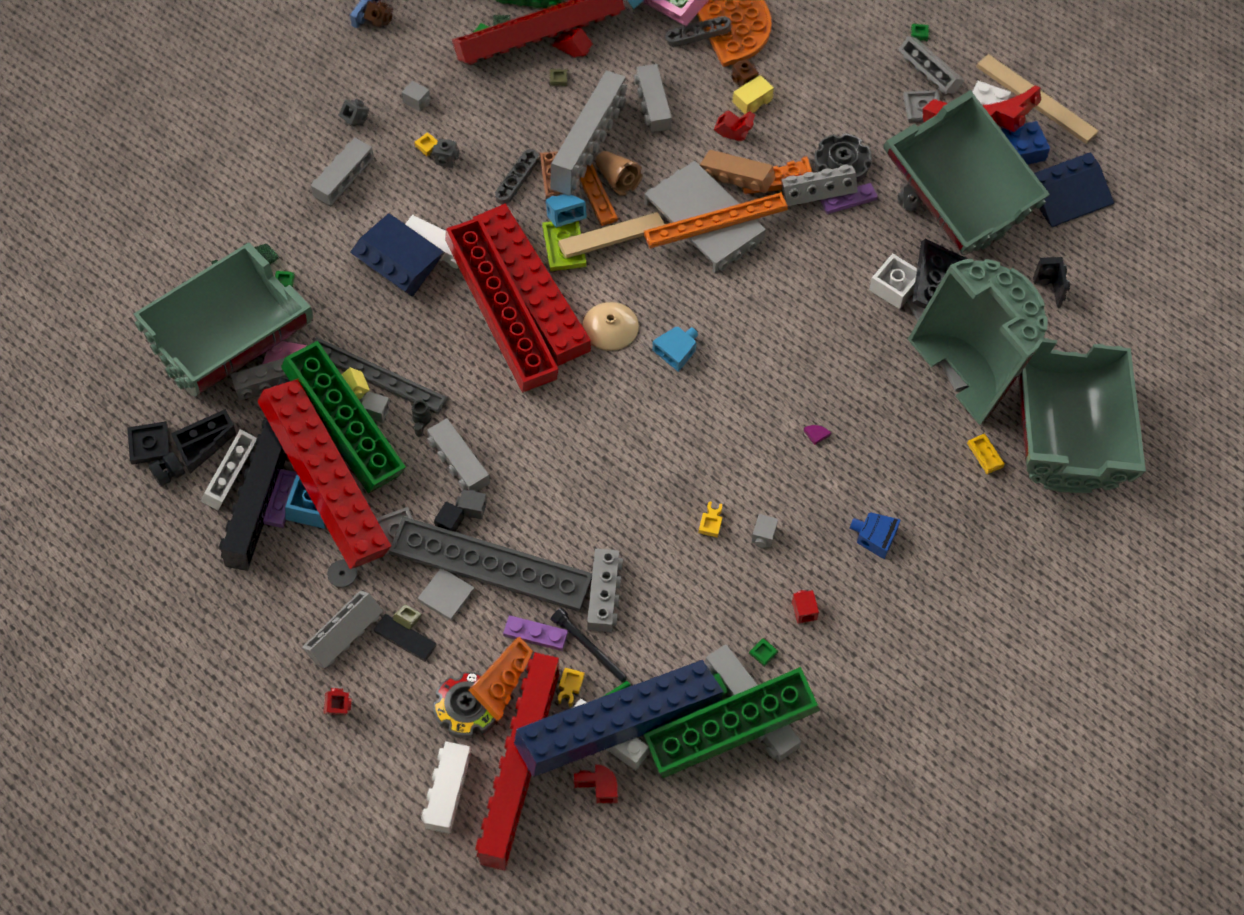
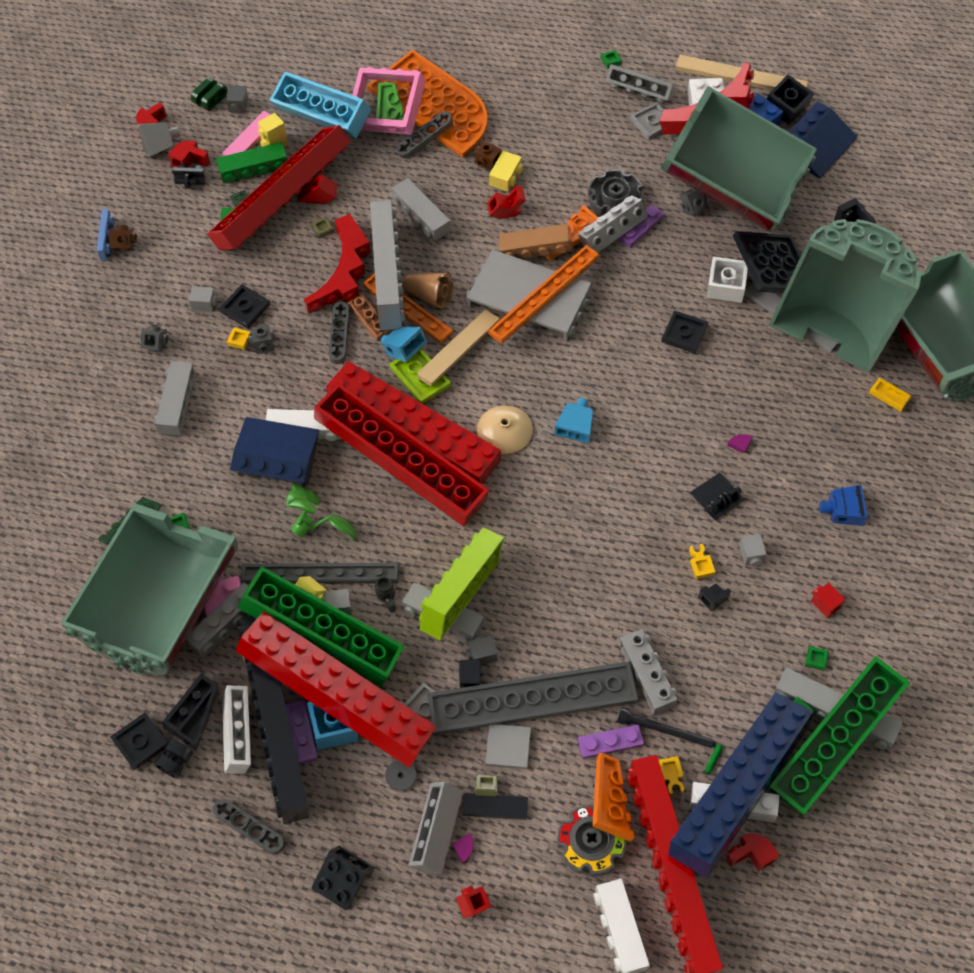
camera: 25 degrees left, 0 degrees up
(196, 553) = (249, 825): none -> dark grey beam
(244, 629) = (341, 876): none -> black bracket
(358, 657) = (464, 847): none -> magenta tile
(385, 303) = (302, 498): none -> bright green plant
(448, 118) = (244, 306): none -> black plate
(482, 436) = (460, 583): none -> lime brick
(557, 123) = (350, 267): none -> red arch
(704, 555) = (713, 596): none -> black panel
(764, 470) = (717, 496): none -> black hinge
(827, 311) = (684, 332): none -> black plate
(1066, 139) = (790, 98): none -> black brick

